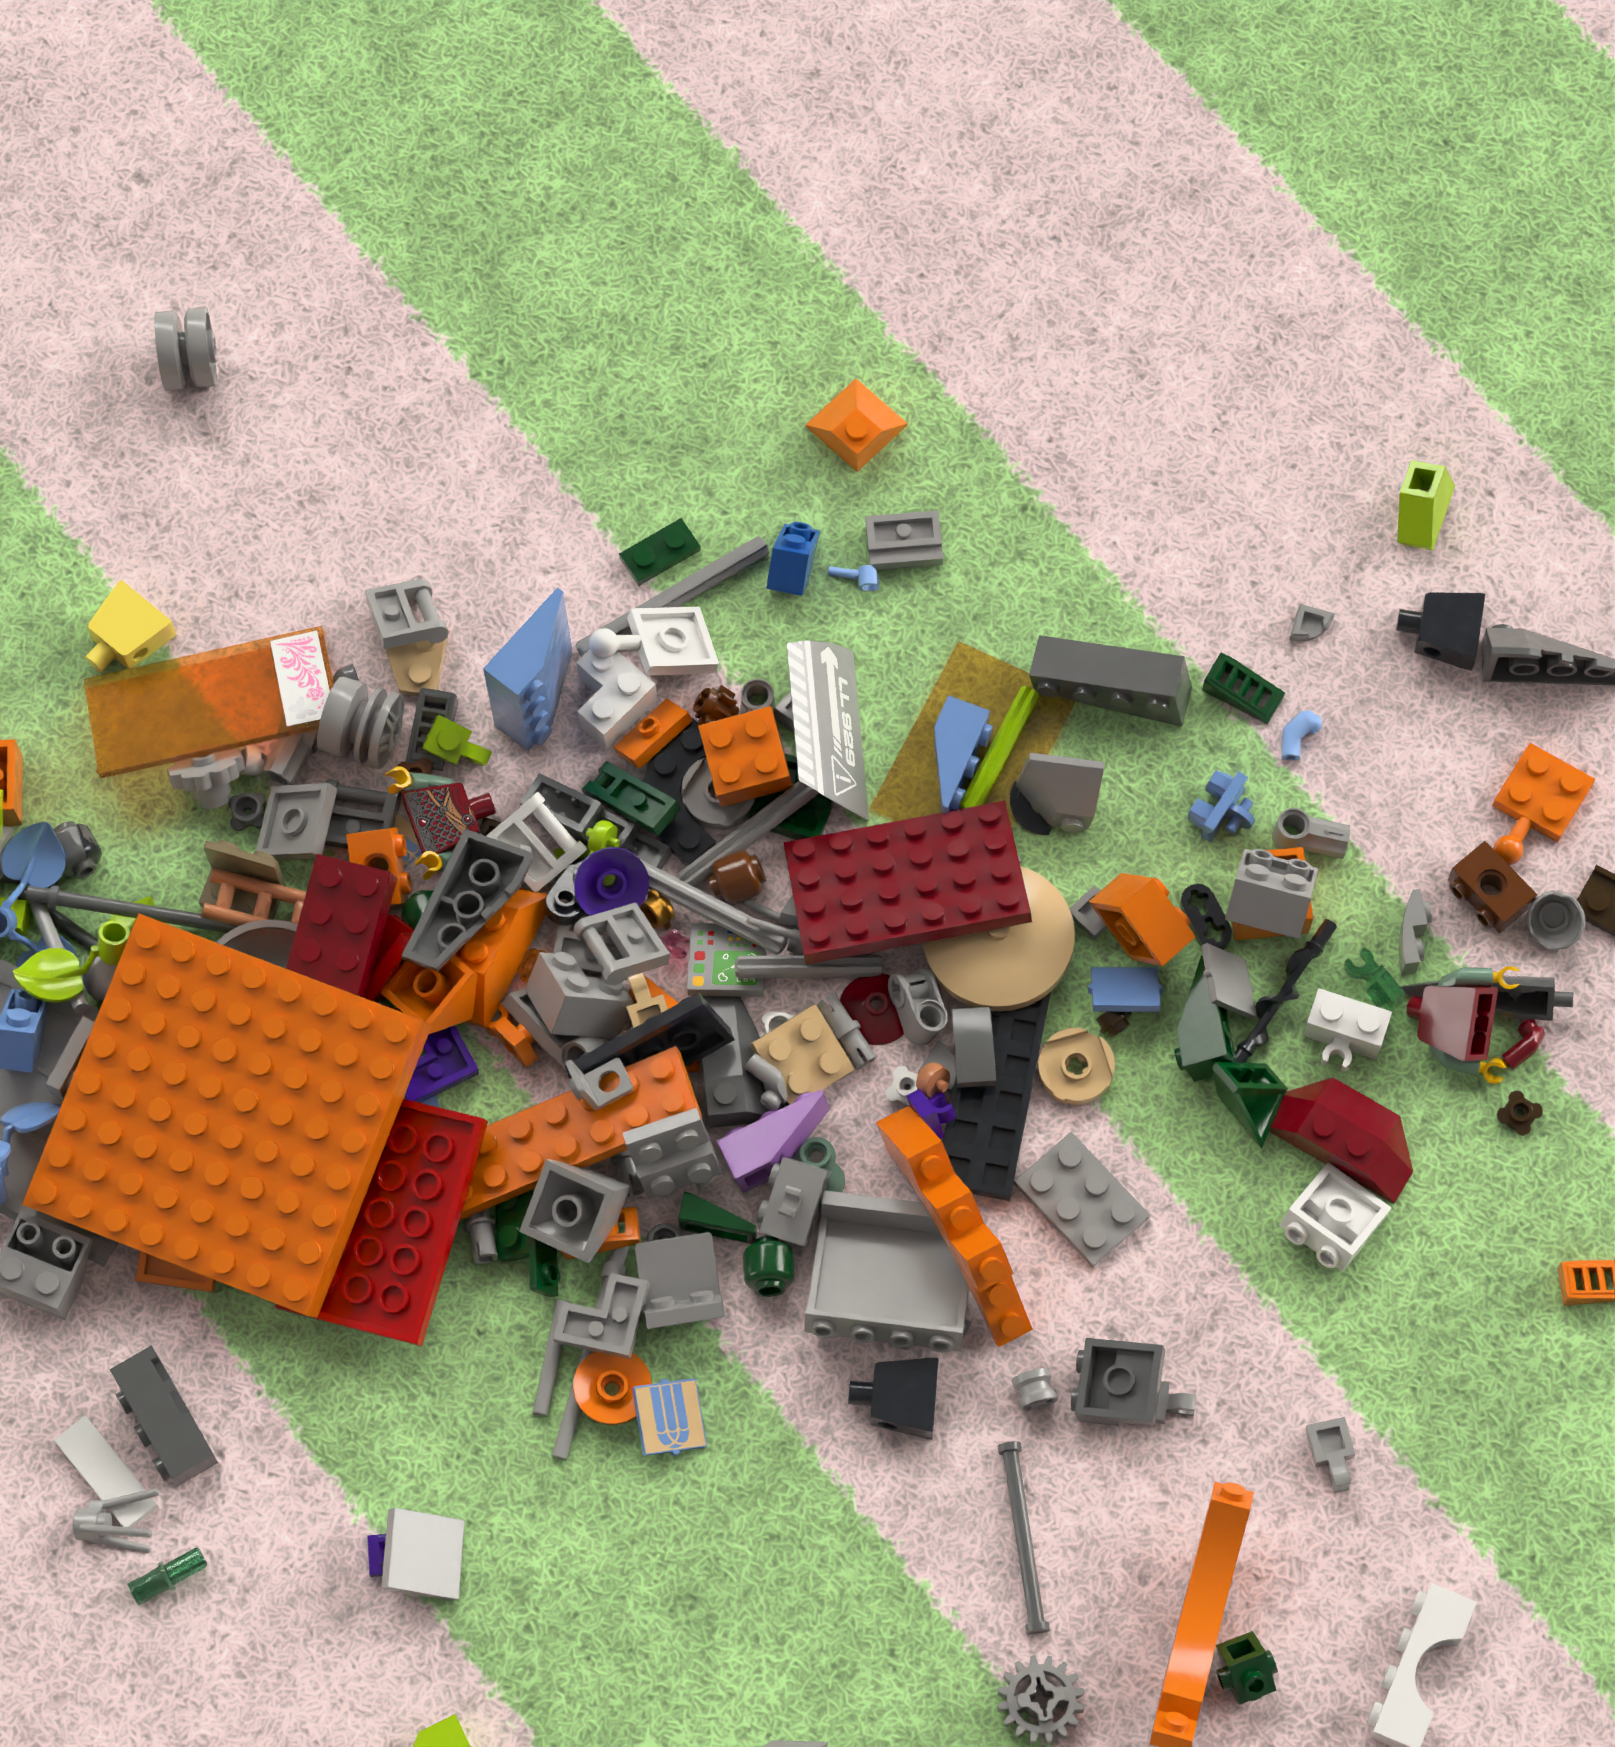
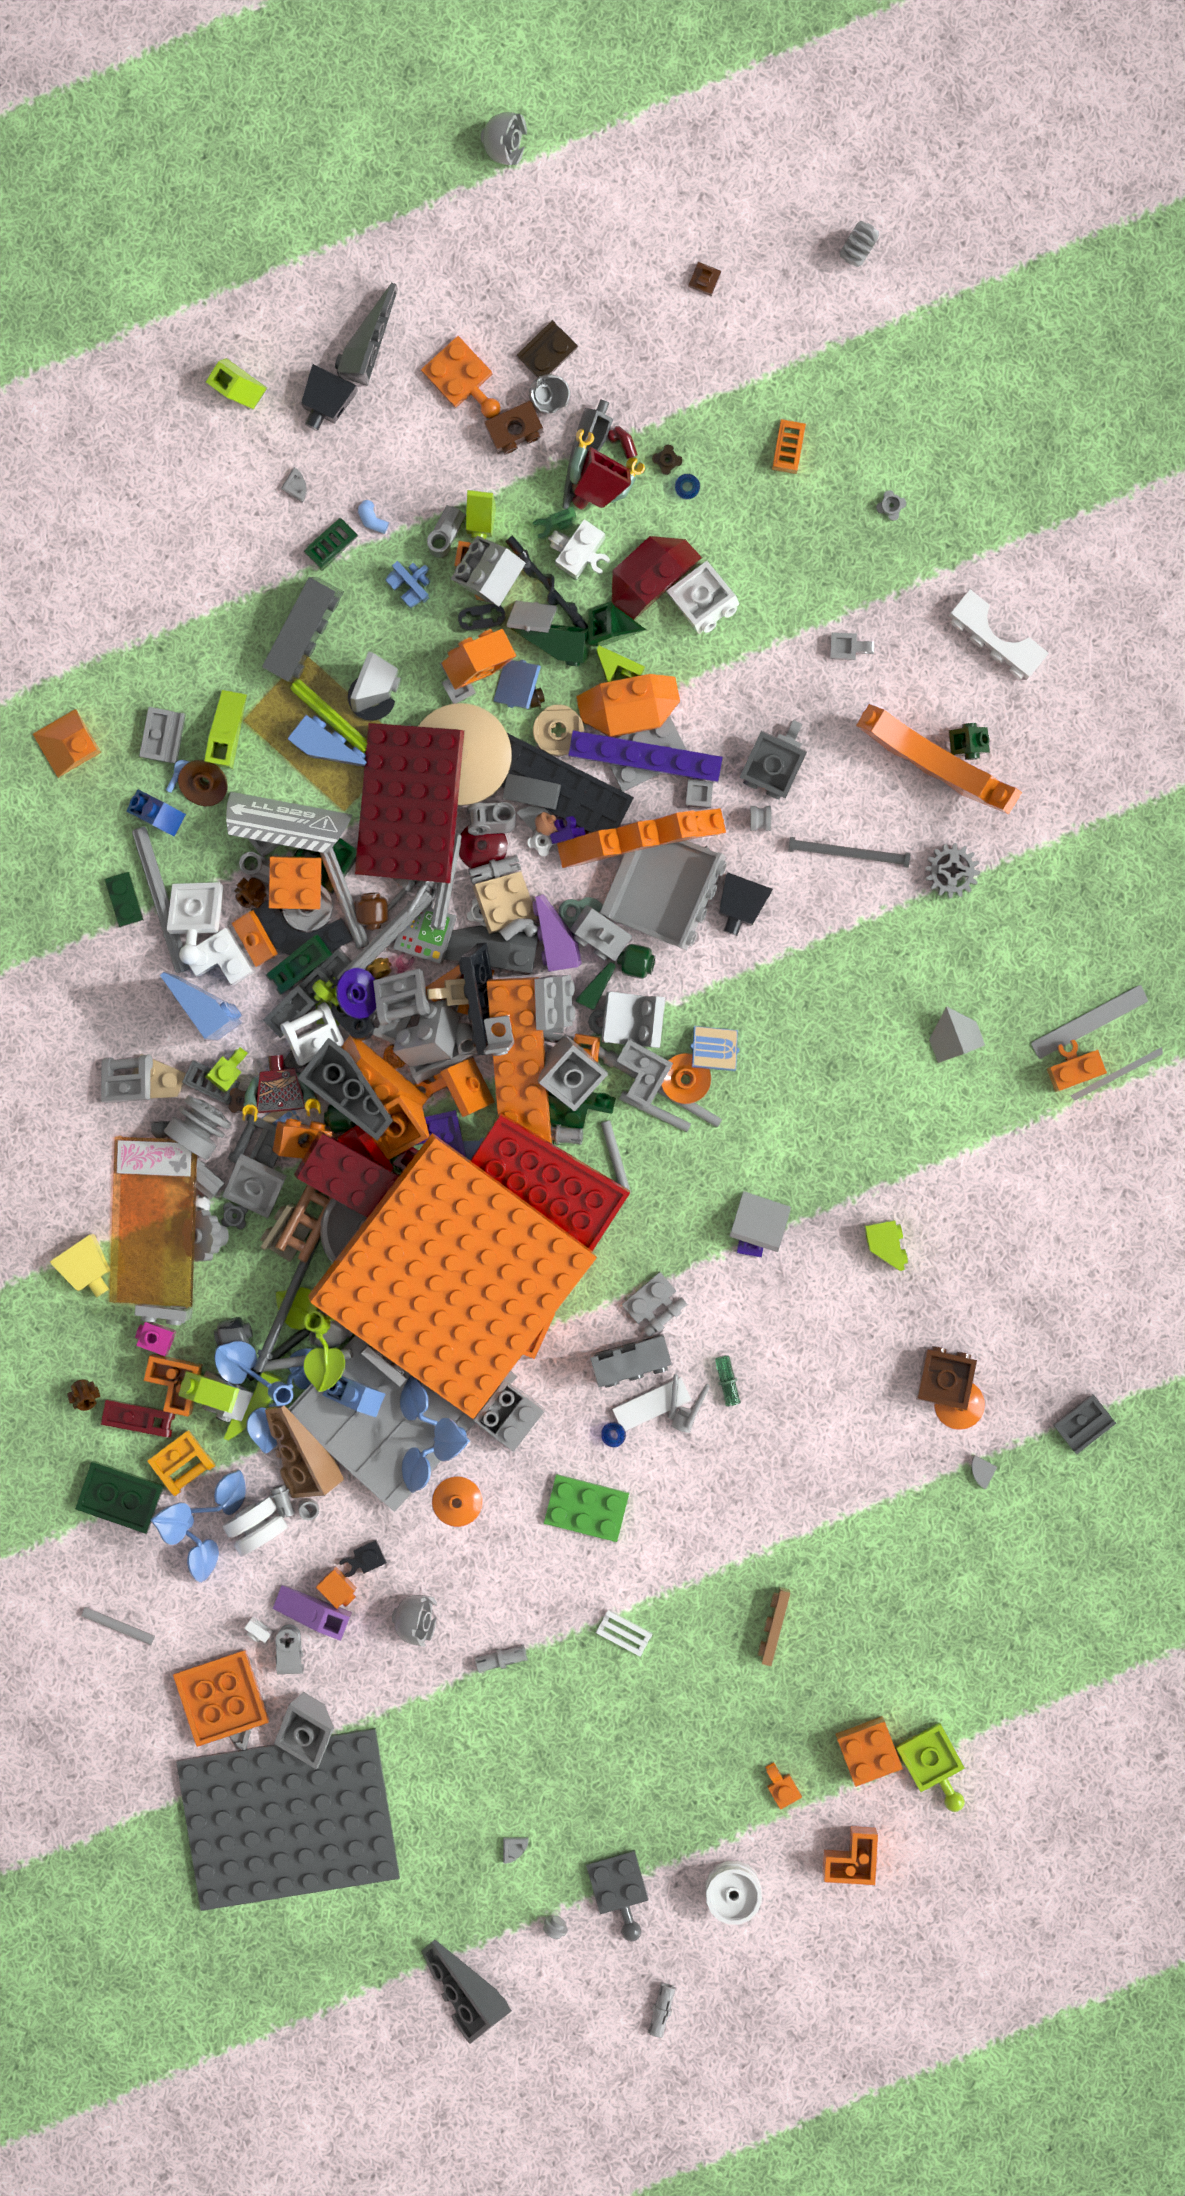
camera: 75 degrees left, 20 degrees up
(42, 1418) = (608, 1439): none -> clear blue plate
(45, 749) = (155, 1337): none -> dark pink brick
(82, 754) = (173, 1314): none -> light grey plate
(265, 1424) = (649, 1298): none -> light grey plate
(469, 1318) = (614, 1154): none -> light grey bar
(516, 1072) = (467, 1087): none -> orange plate
(853, 607) = (198, 790): none -> reddish brown dish
(935, 617) = (226, 729): none -> lime slope
(1044, 1291) = (699, 793): none -> light grey plate
(1075, 1196) = (645, 756): none -> dark purple plate
(1146, 1155) = (629, 704): none -> orange wedge
(1196, 1113) = (612, 661): none -> lime slope
(1351, 867) = (480, 514): none -> lime slope
(1351, 989) = (558, 541): none -> white plate
(1413, 924) = (522, 485): light grey slope -> none
(1493, 1141) = (687, 478): none -> clear blue plate
(1574, 1451) = (890, 497): none -> light grey plate

